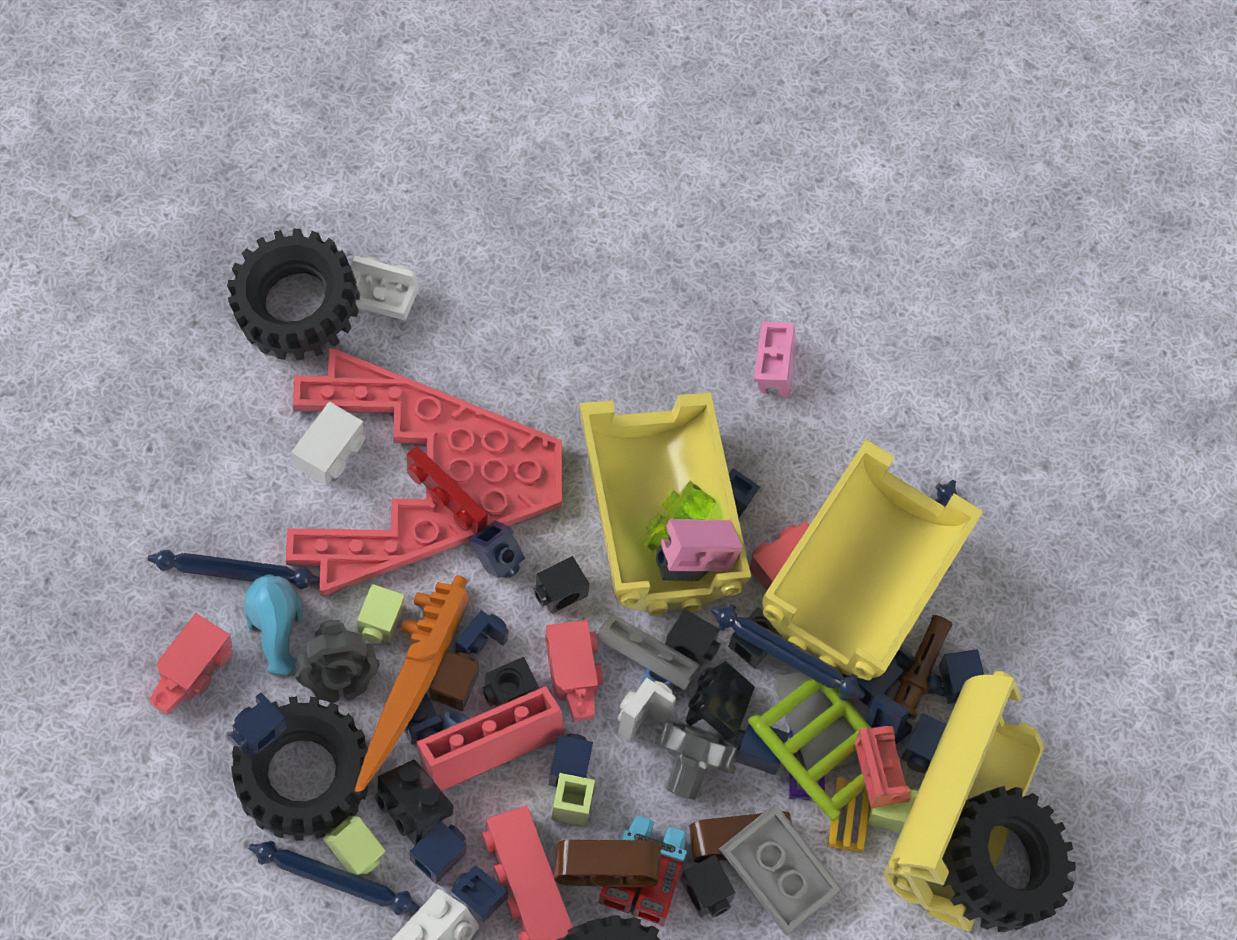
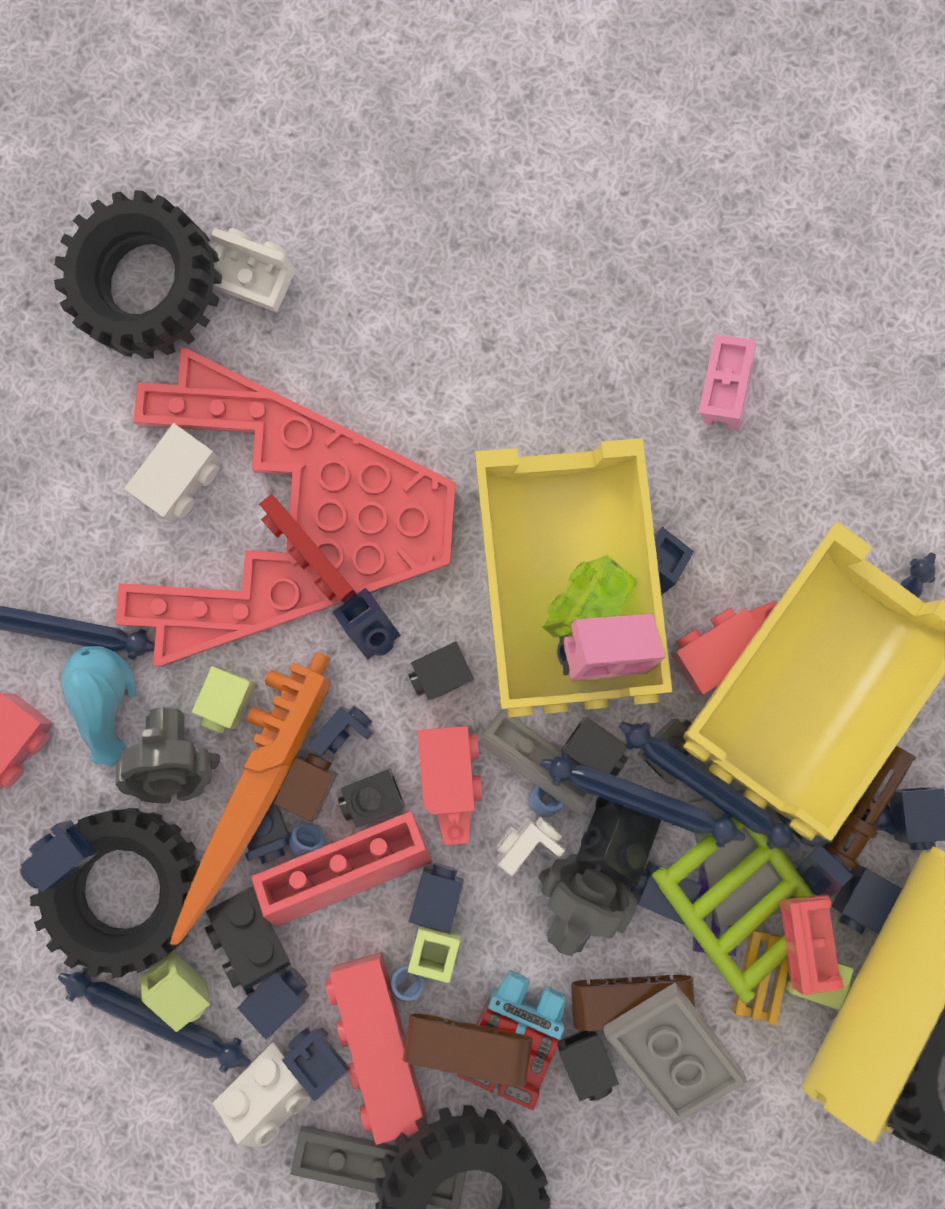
camera: 15 degrees right, 20 degrees up
(546, 826) = (412, 991): none -> medium blue hinge
(734, 665) = (643, 800): none -> dark blue wheel

